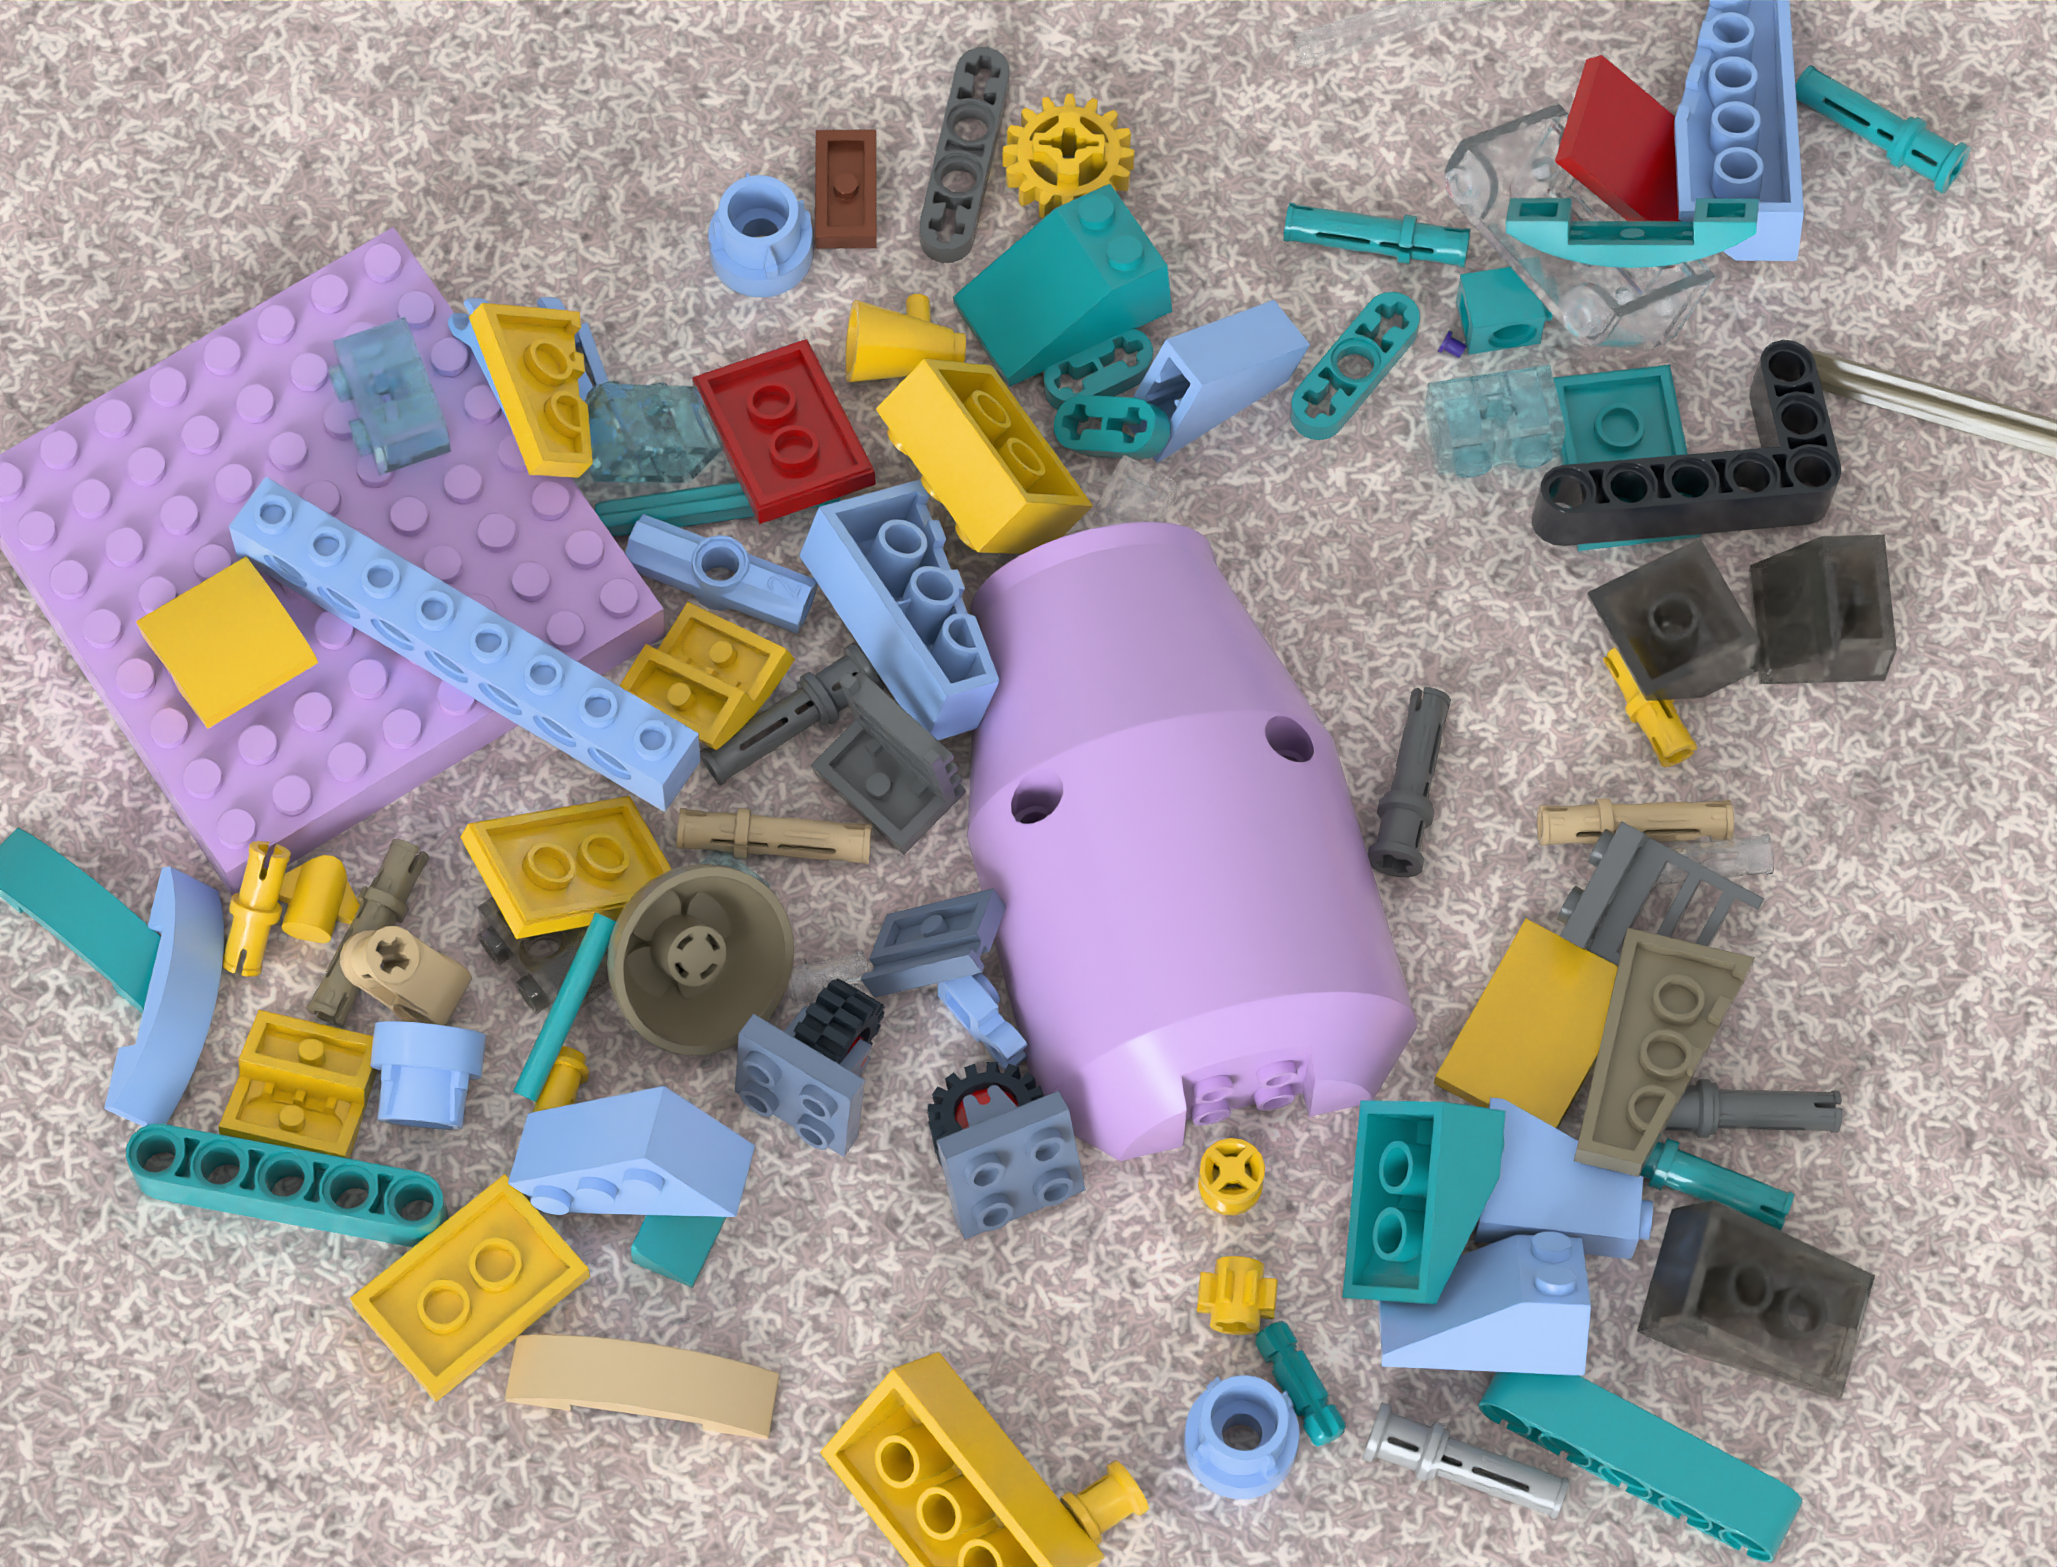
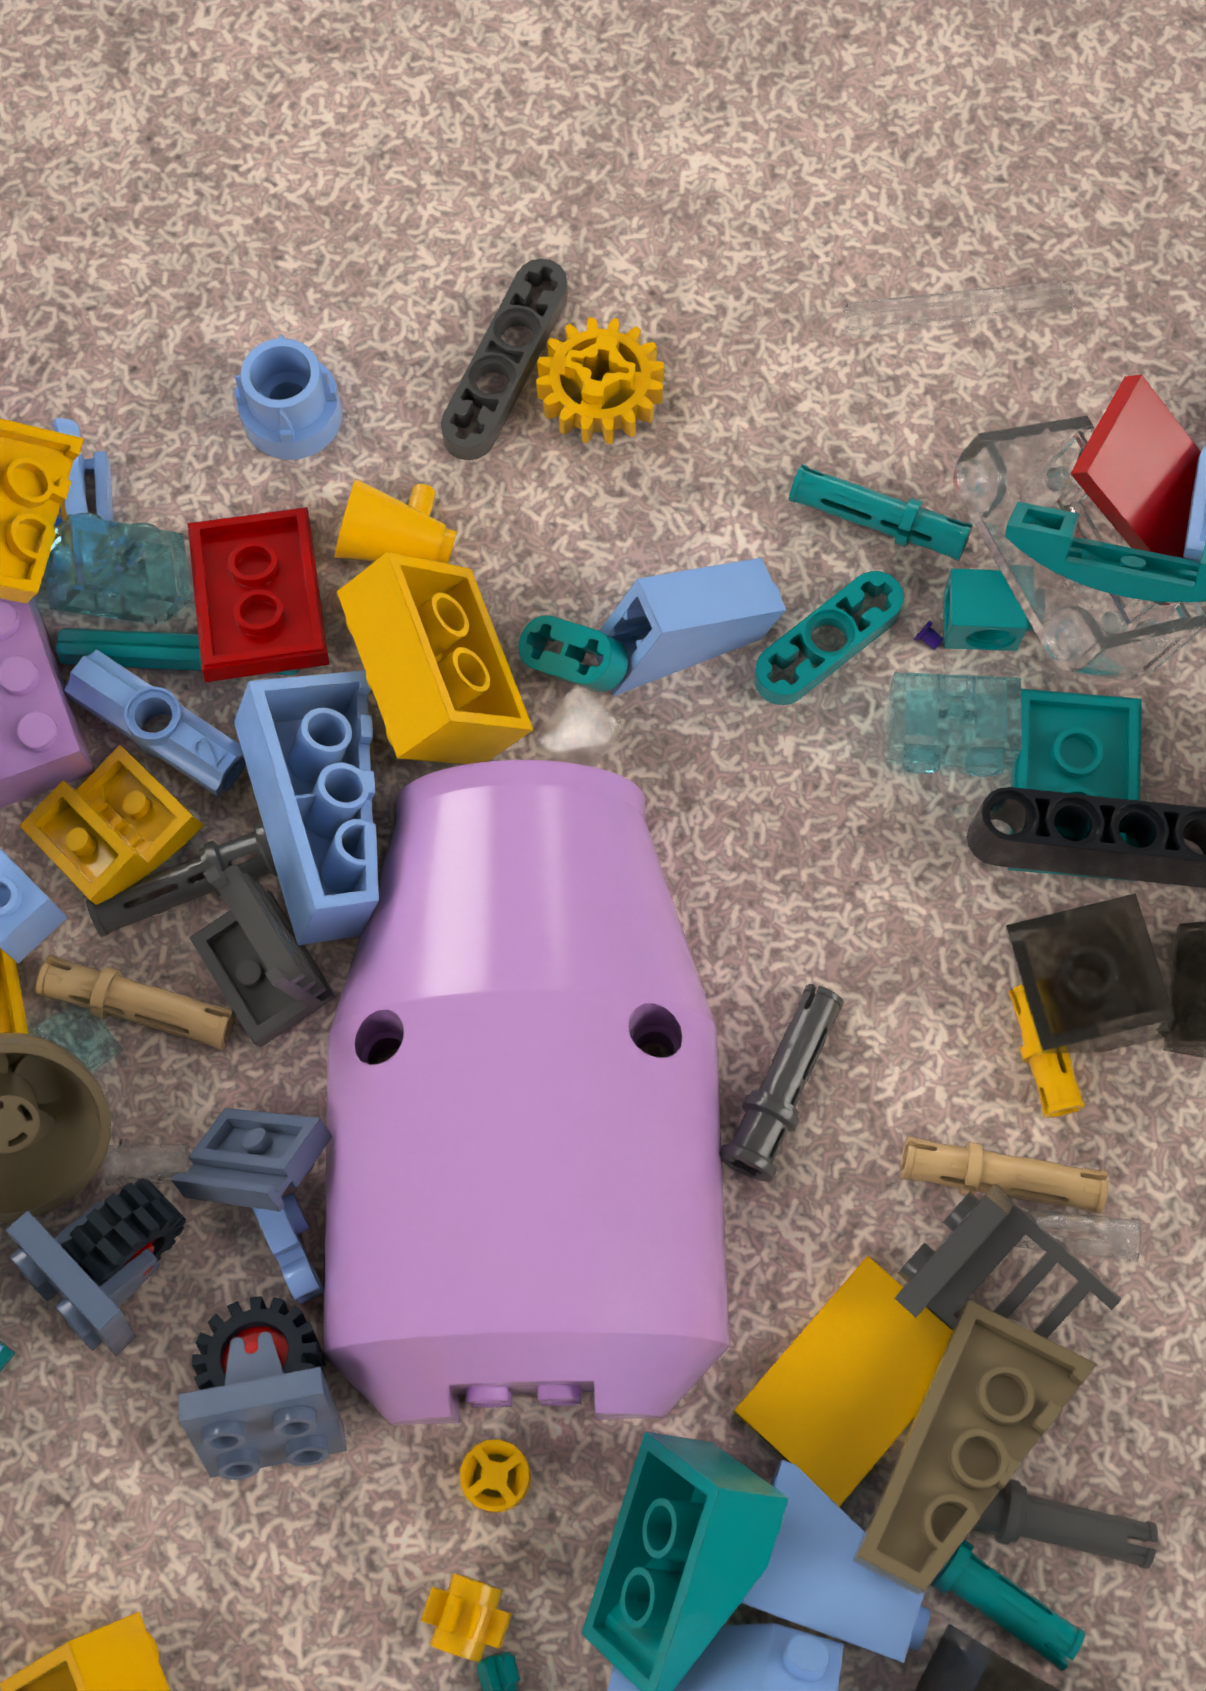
camera: 15 degrees right, 5 degrees up
(845, 189) = (383, 370): copper plate -> none
(1066, 287) = (564, 506): teal slope -> none
(1103, 381) = (575, 579): teal beam -> none

